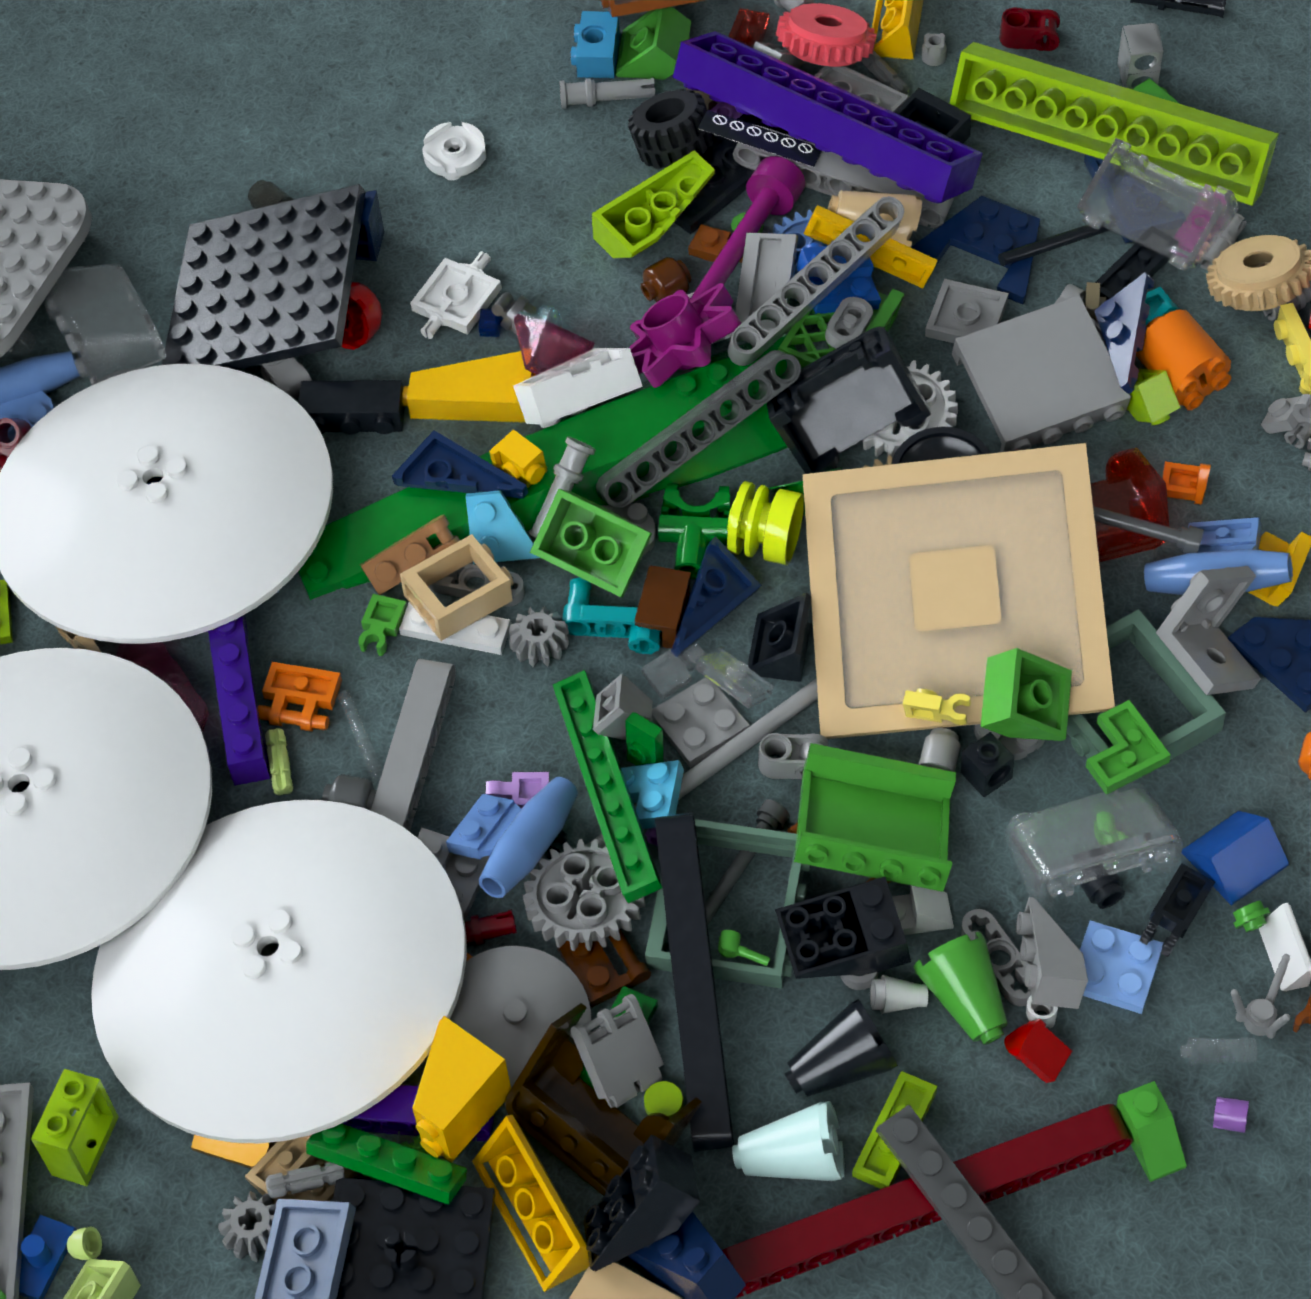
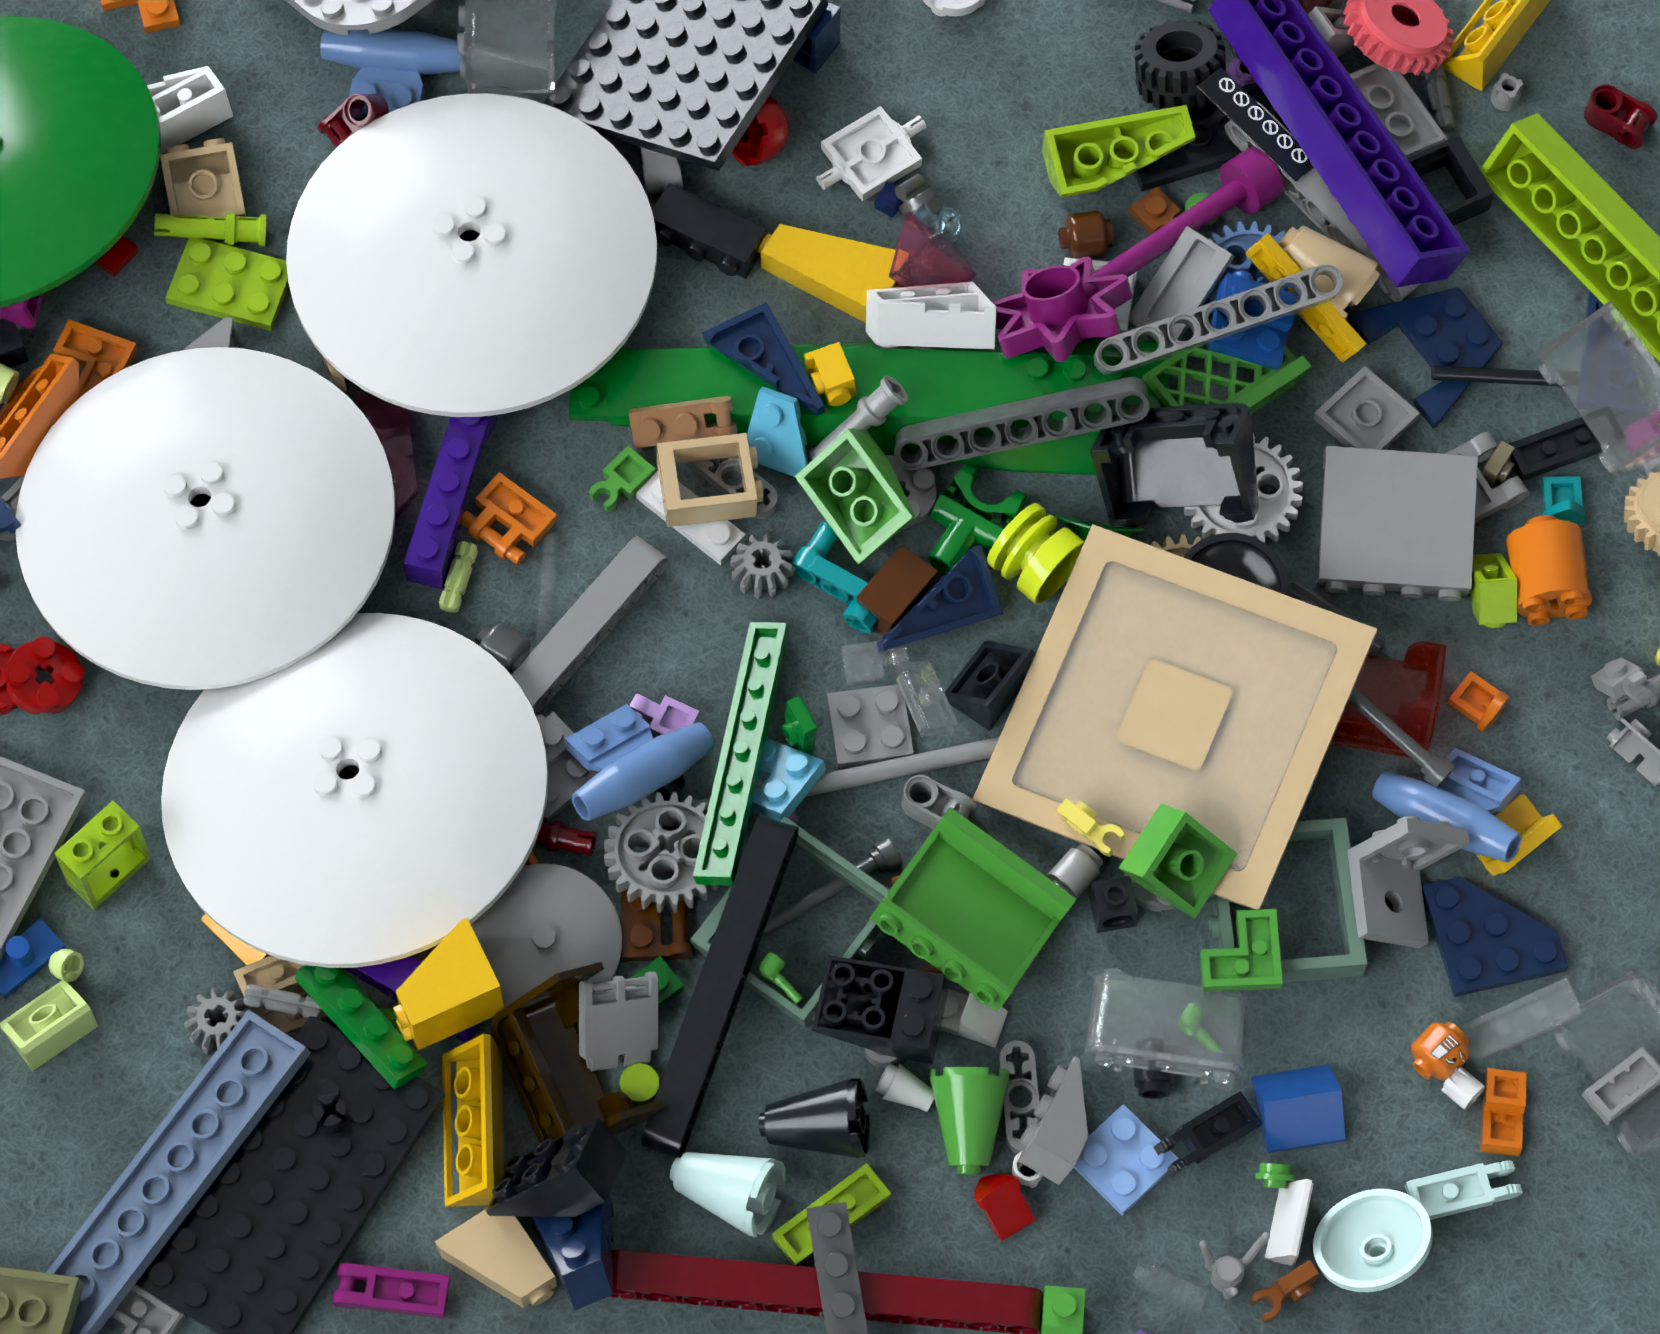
camera: 20 degrees right, 10 degrees up
(616, 704) = (794, 676): light grey slope -> none
(848, 321) = (1228, 378): light grey plate -> none
(1124, 328) = (1504, 509): wing -> none

